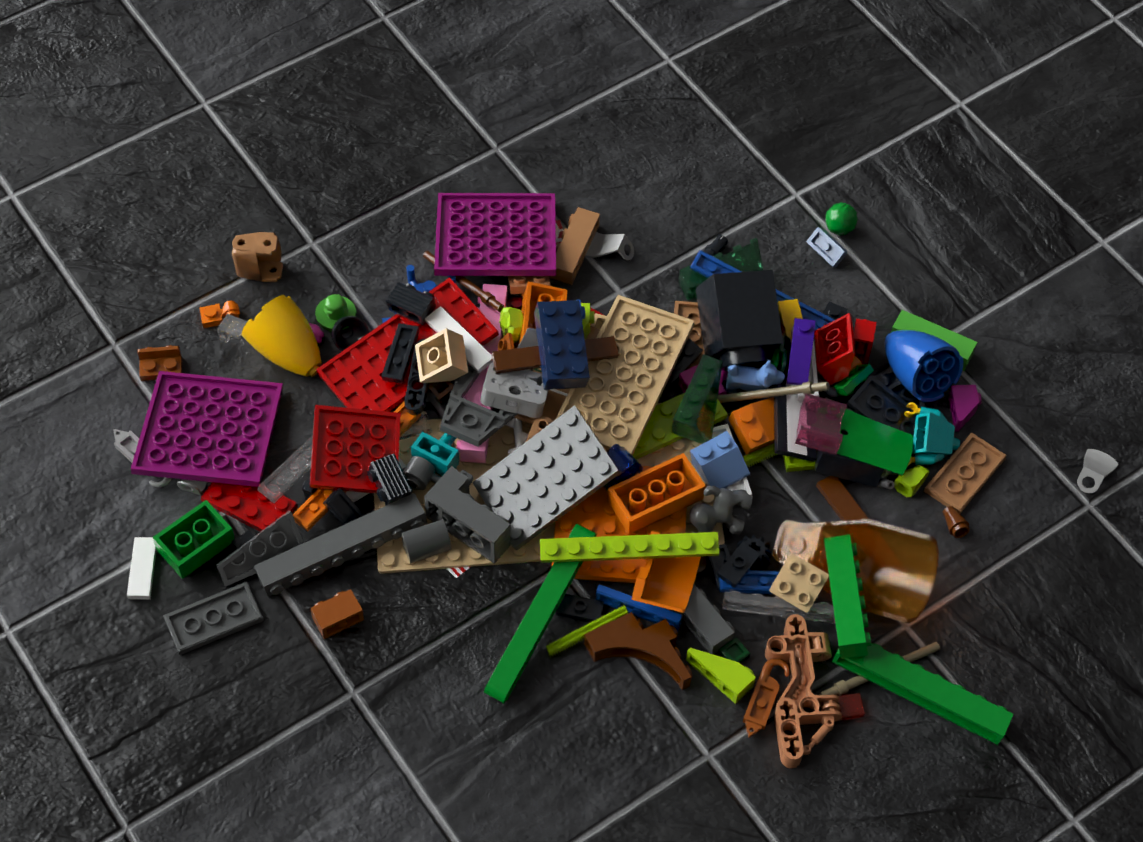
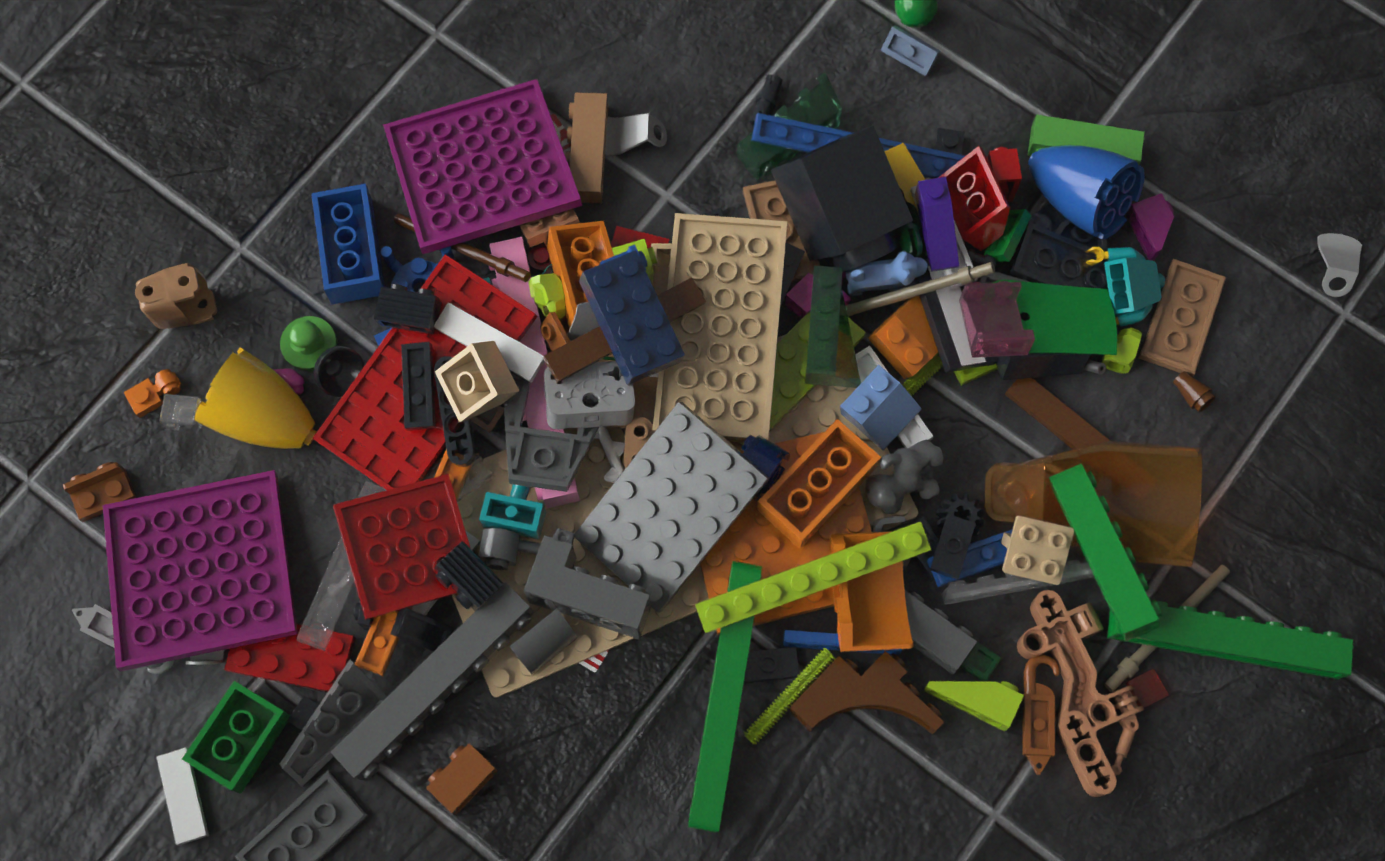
camera: 15 degrees left, 15 degrees up
(385, 257) = (348, 243): none -> blue brick

